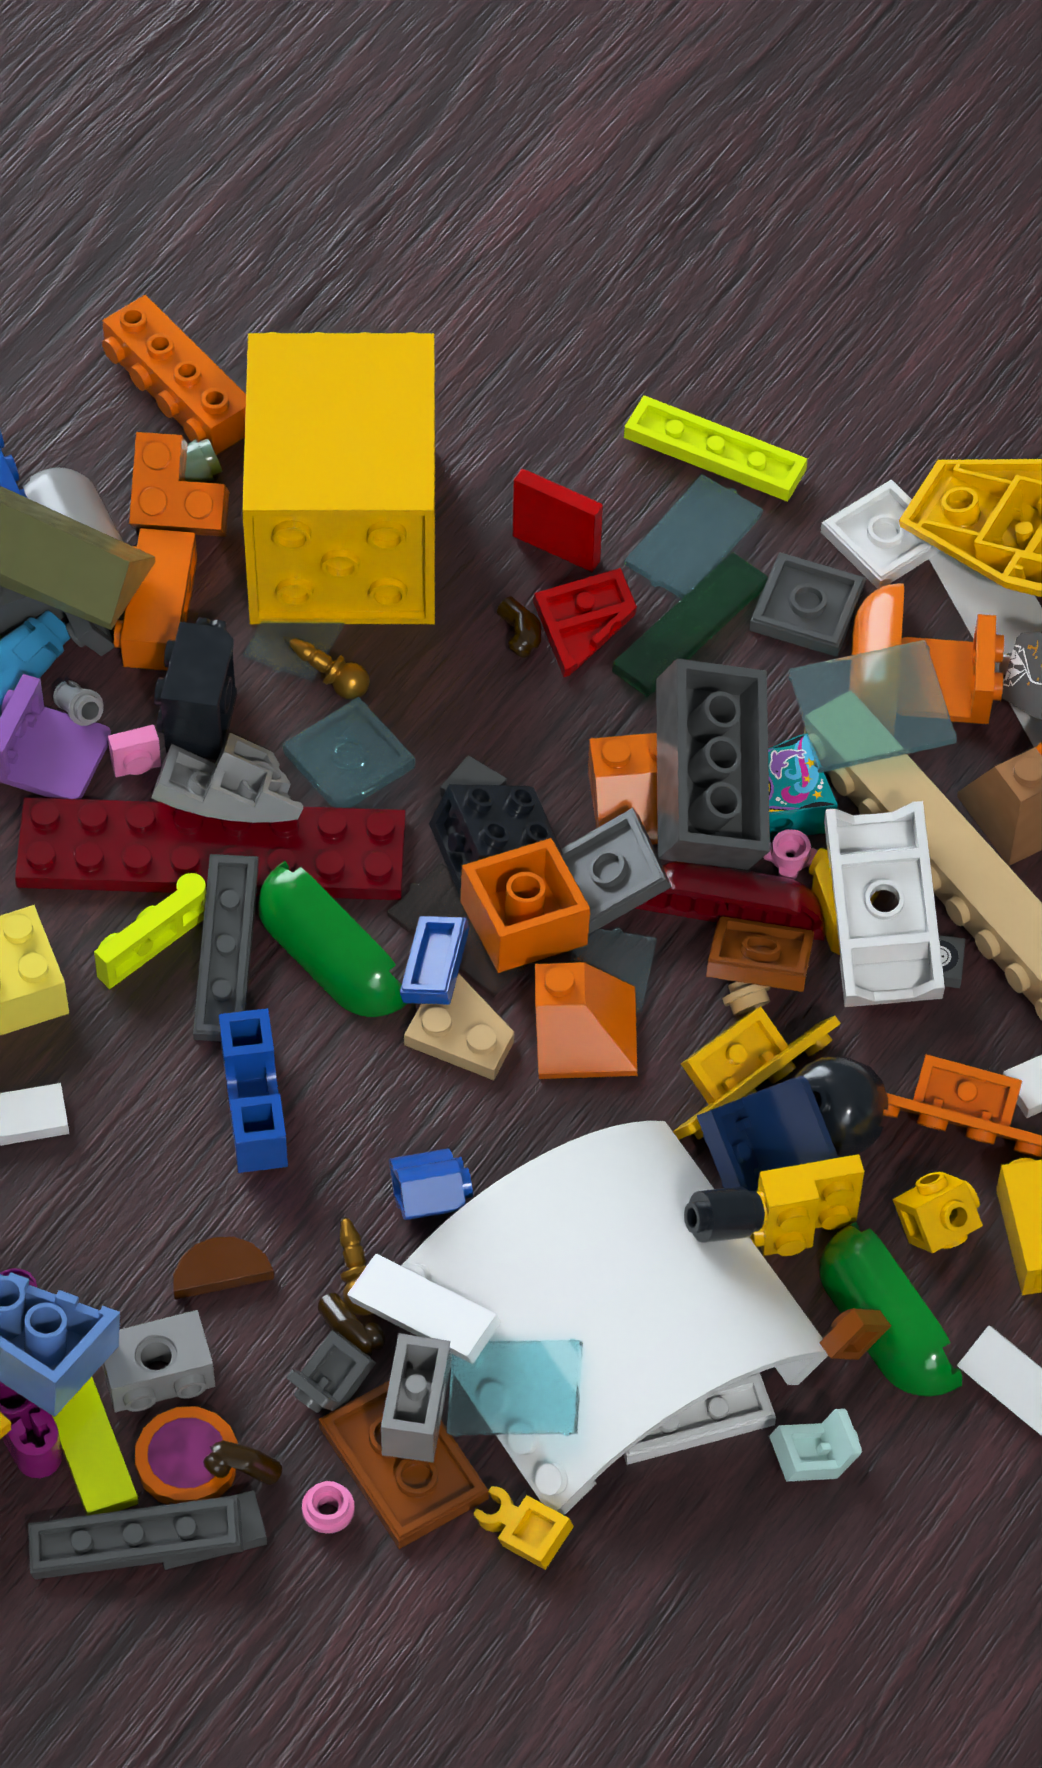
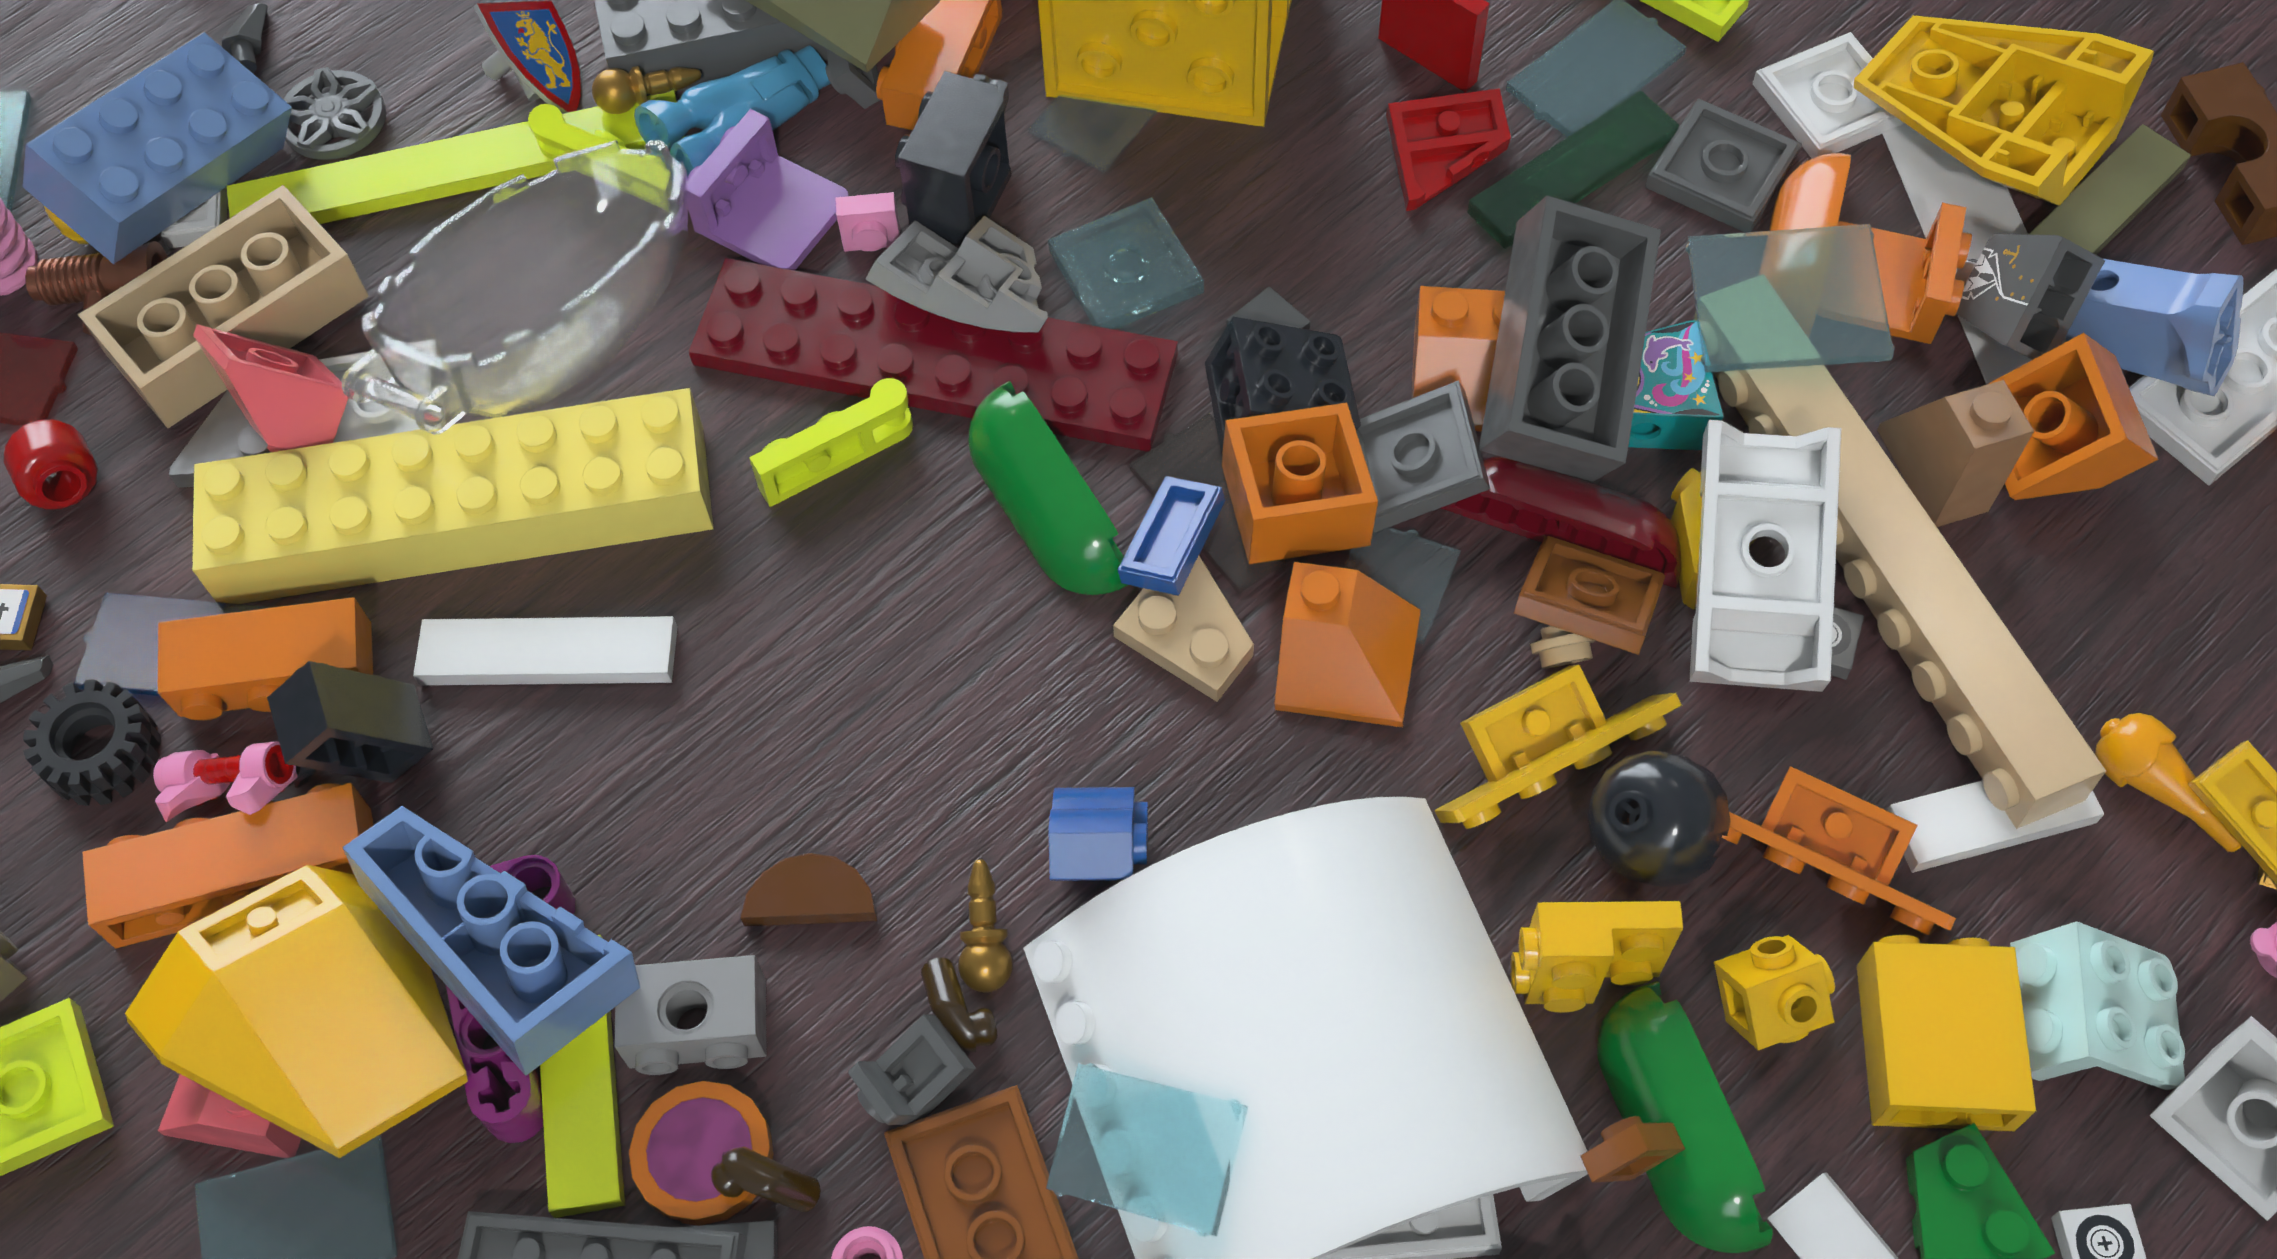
camera: 15 degrees right, 5 degrees up
(82, 705) = (817, 156): light grey pin -> none
(225, 941) = (917, 479): dark grey tile -> none
(253, 1090) = (901, 695): blue arch -> none
(348, 679) = (1144, 175): pearl gold bar -> none
(415, 1398) = (1008, 1138): light grey brick -> none
(424, 1307) = (1050, 1010): white tile -> none
(525, 625) = (1371, 142): dark brown arm -> none
(724, 1214) = (1478, 954): black brick -> none
(766, 1133) = (1556, 847): dark blue bracket -> none
(790, 842) = (1656, 455): bright pink plate -> none

